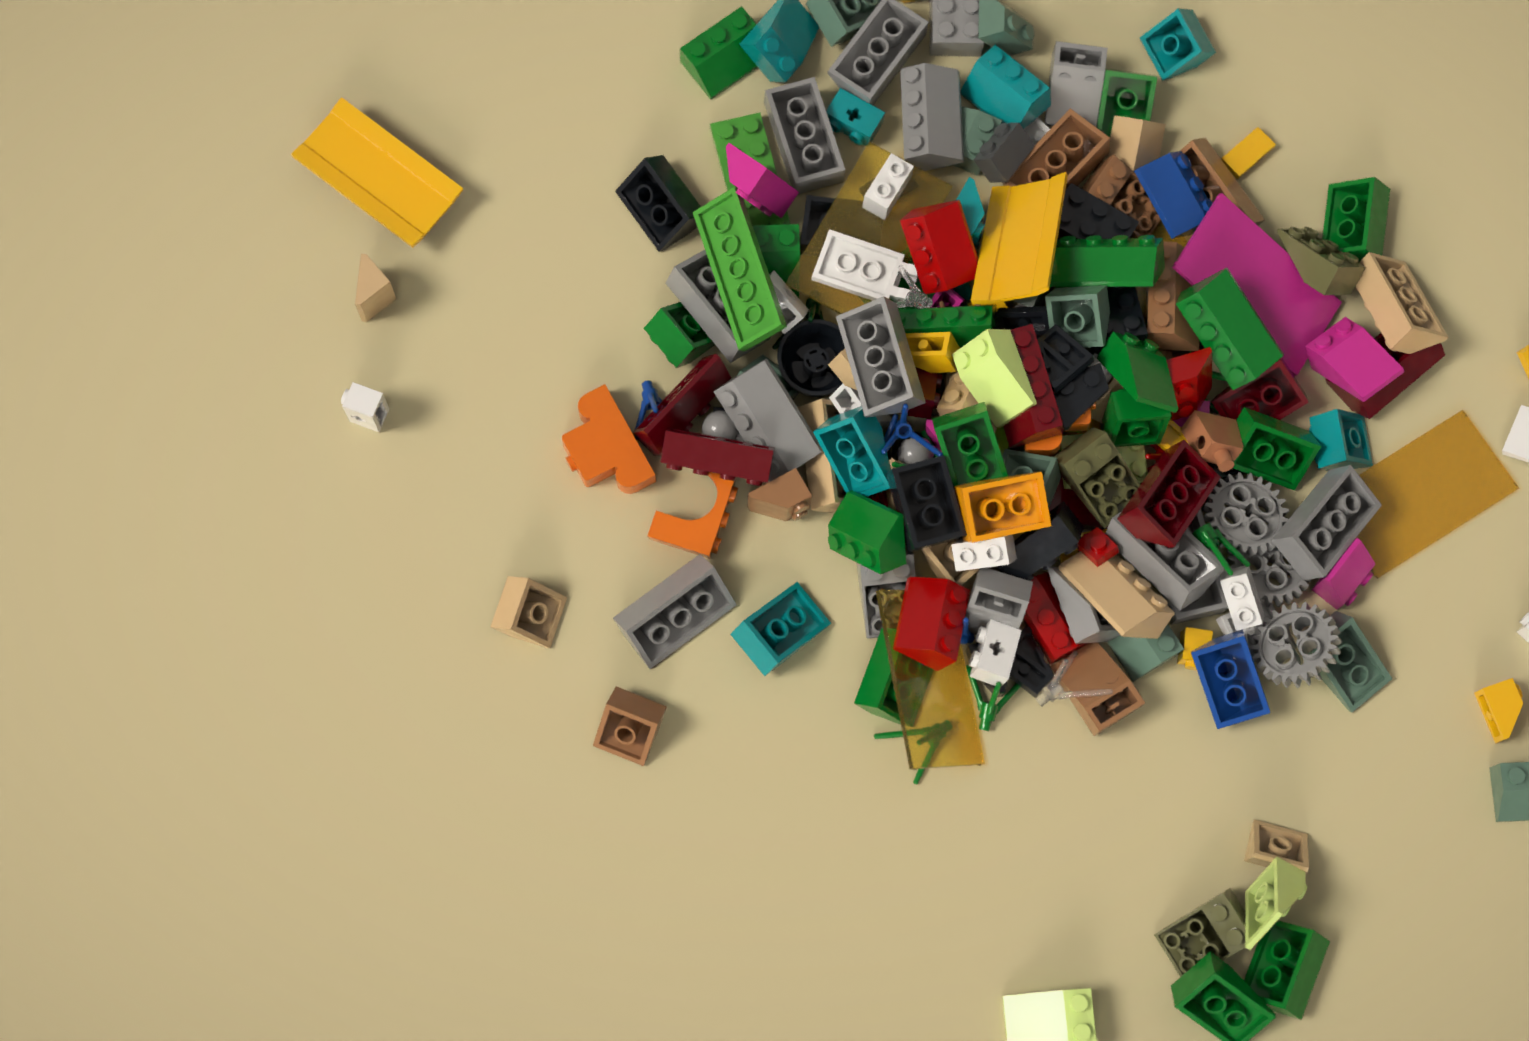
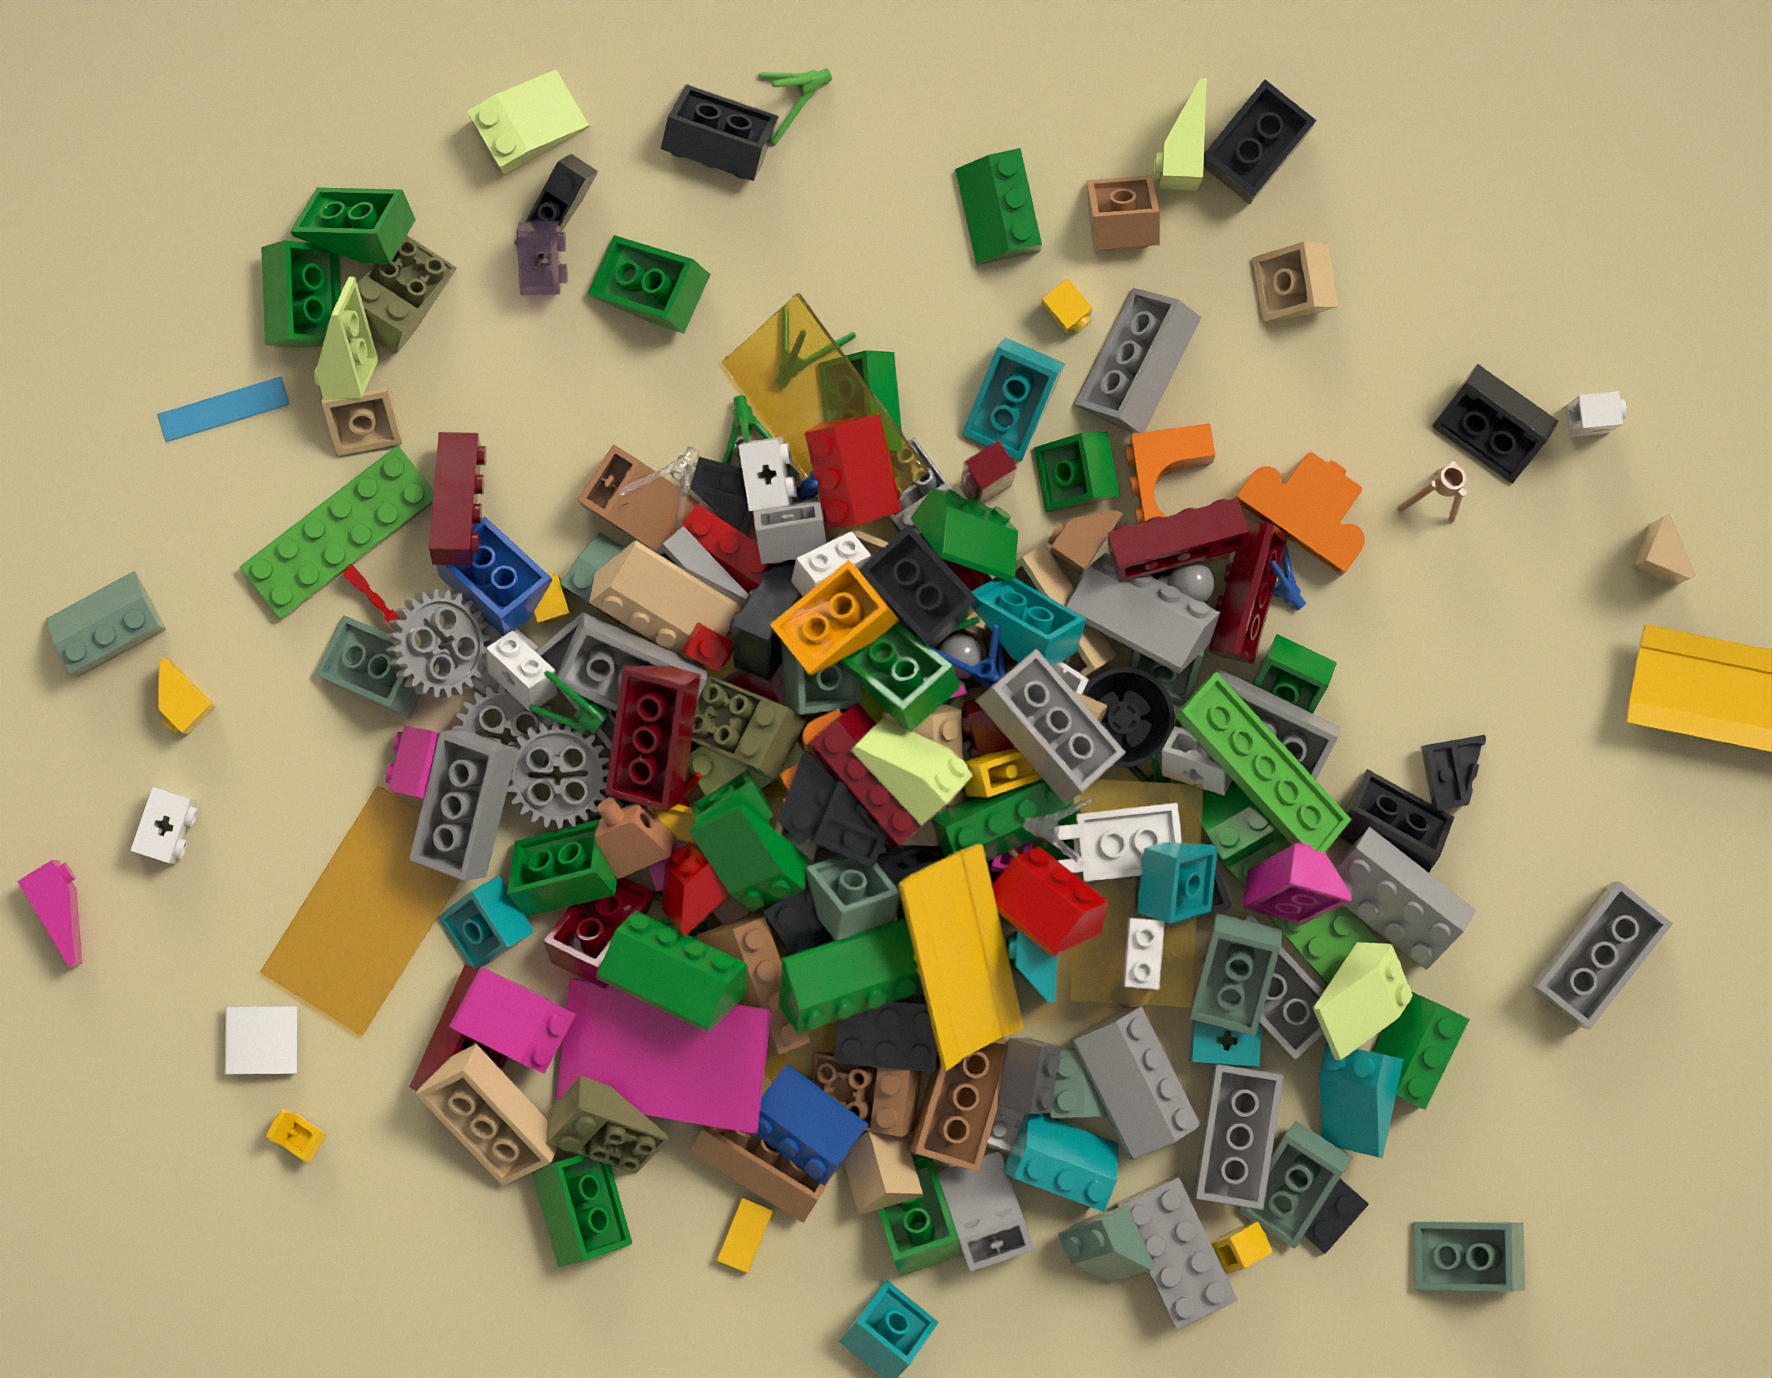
camera: 160 degrees right, 10 degrees up
(438, 439) = (1495, 423): none -> black slope
(499, 407) = (1448, 483): none -> medium nougat plant
(502, 726) = (1257, 141): none -> black brick
(561, 748) = (1182, 156): none -> yellowish green slope
(565, 50) = (1601, 955): none -> light grey brick
(601, 220) = (1451, 770): none -> black wing
(686, 148) = (1401, 899): none -> light grey brick
(707, 675) = (1067, 307): none -> yellow brick
(721, 775) = (998, 207): none -> green slope
(747, 92) = (1362, 997): none -> yellowish green slope
(761, 552) = (1076, 471): none -> green slope
(819, 944) = (806, 84): none -> bright green plant
(827, 146) = (1236, 974): none -> sand green slope
(833, 568) = (987, 473): none -> dark red brick
(841, 220) = (1177, 880): none -> teal slope
(905, 938) = (719, 132): none -> black slope
(1013, 847) = (650, 283): none -> green slope
(1057, 943) = (563, 192): none -> black slope
(1090, 903) = (539, 277): none -> brick
(1235, 749) = (456, 498): none -> dark red brick
(1329, 775) = (339, 532): none -> bright green plate
(1331, 732) = (360, 583): none -> red piece
(1379, 913) = (223, 409): none -> dark azure sticker

